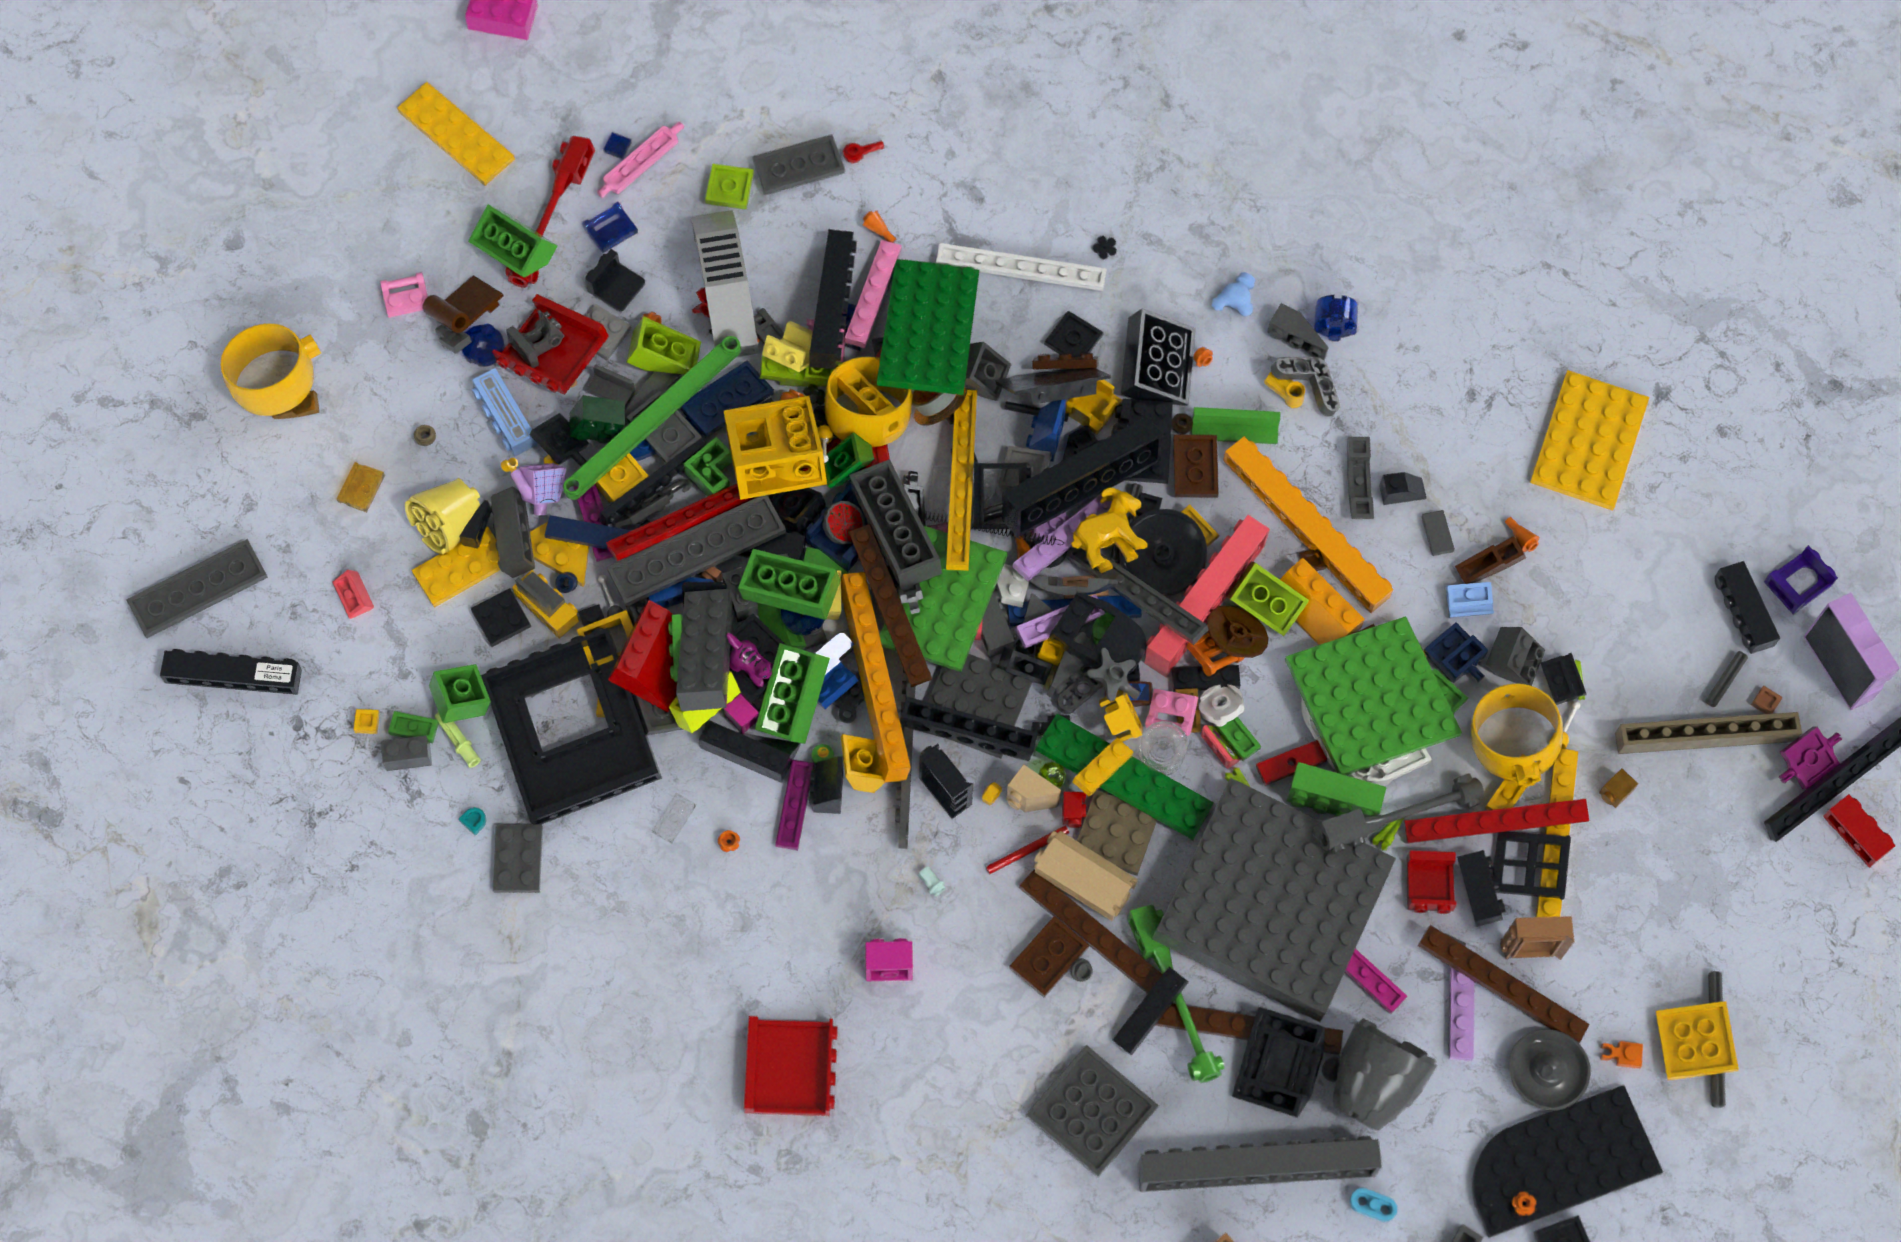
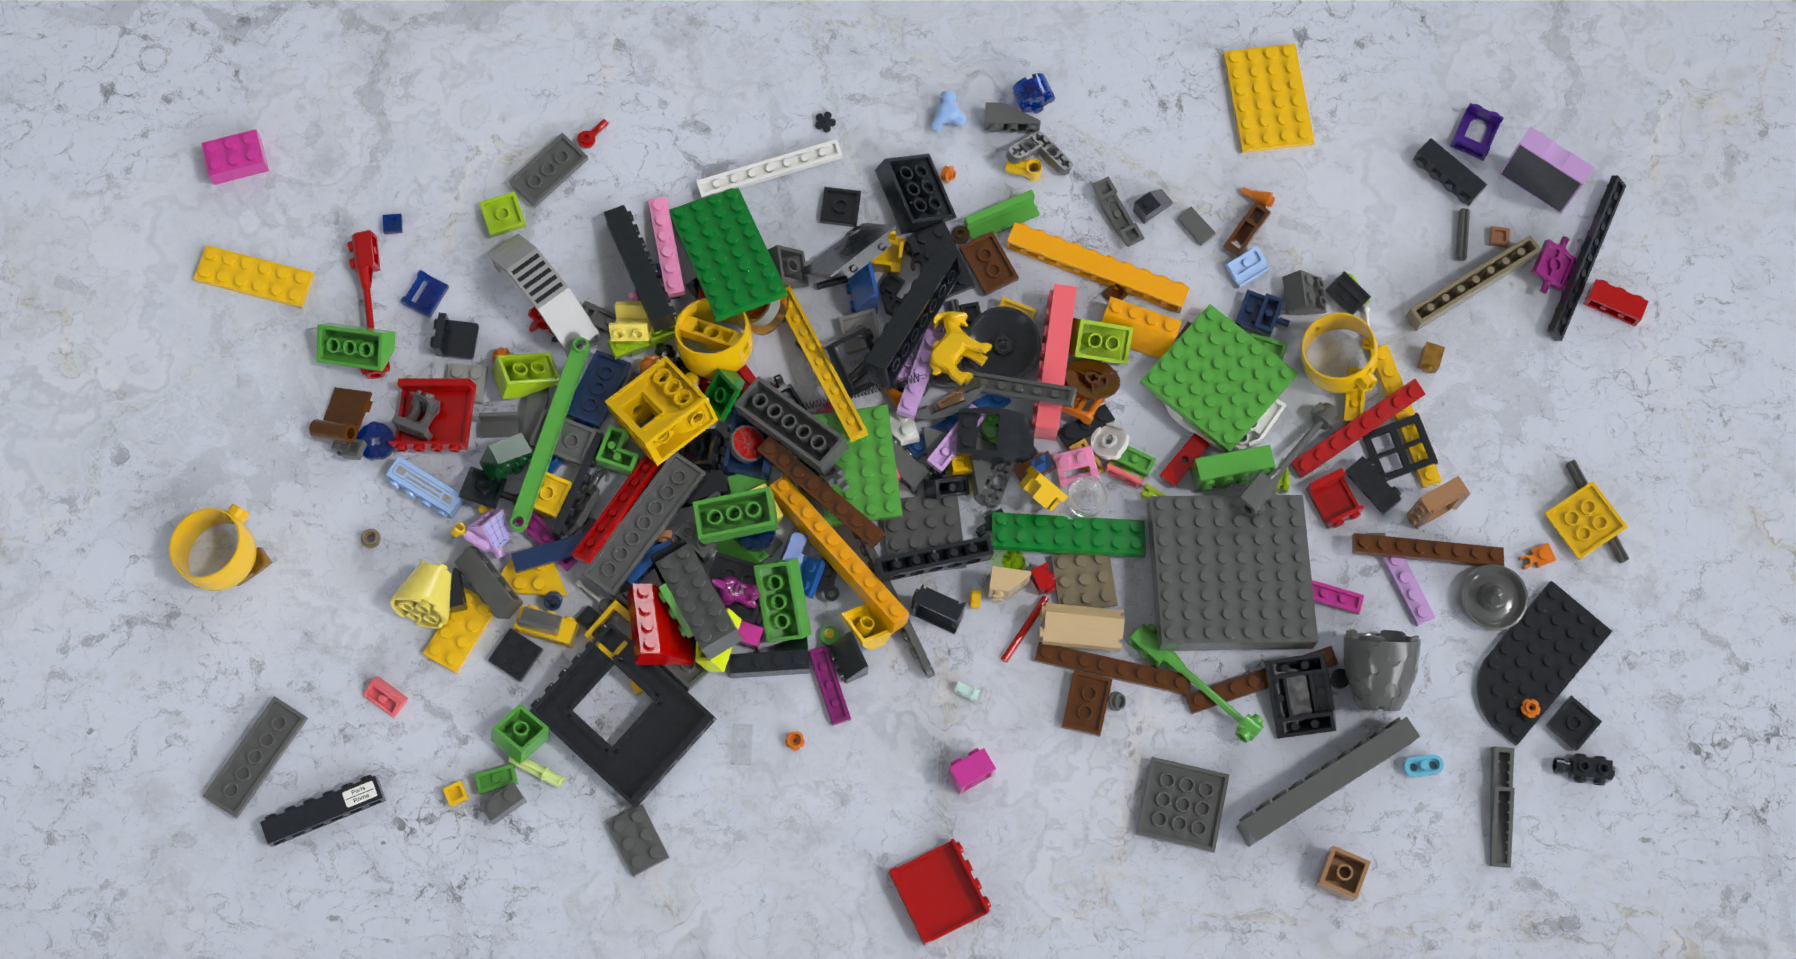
camera: 30 degrees left, 5 degrees up
(360, 487) = (342, 606): clear yellow plate -> none
(404, 301) = (292, 435): bright pink plate -> none
(474, 820) = (585, 828): teal tile -> none
(640, 159) = (419, 226): bright pink plate -> none
(875, 223) = (635, 188): orange cone -> none
(1065, 361) = (846, 229): reddish brown plate -> none
(1103, 767) = (1051, 536): yellow plate -> none
(1114, 676) = (1024, 462): dark grey animal -> none
(1150, 1010) = (1185, 705): black plate -> none

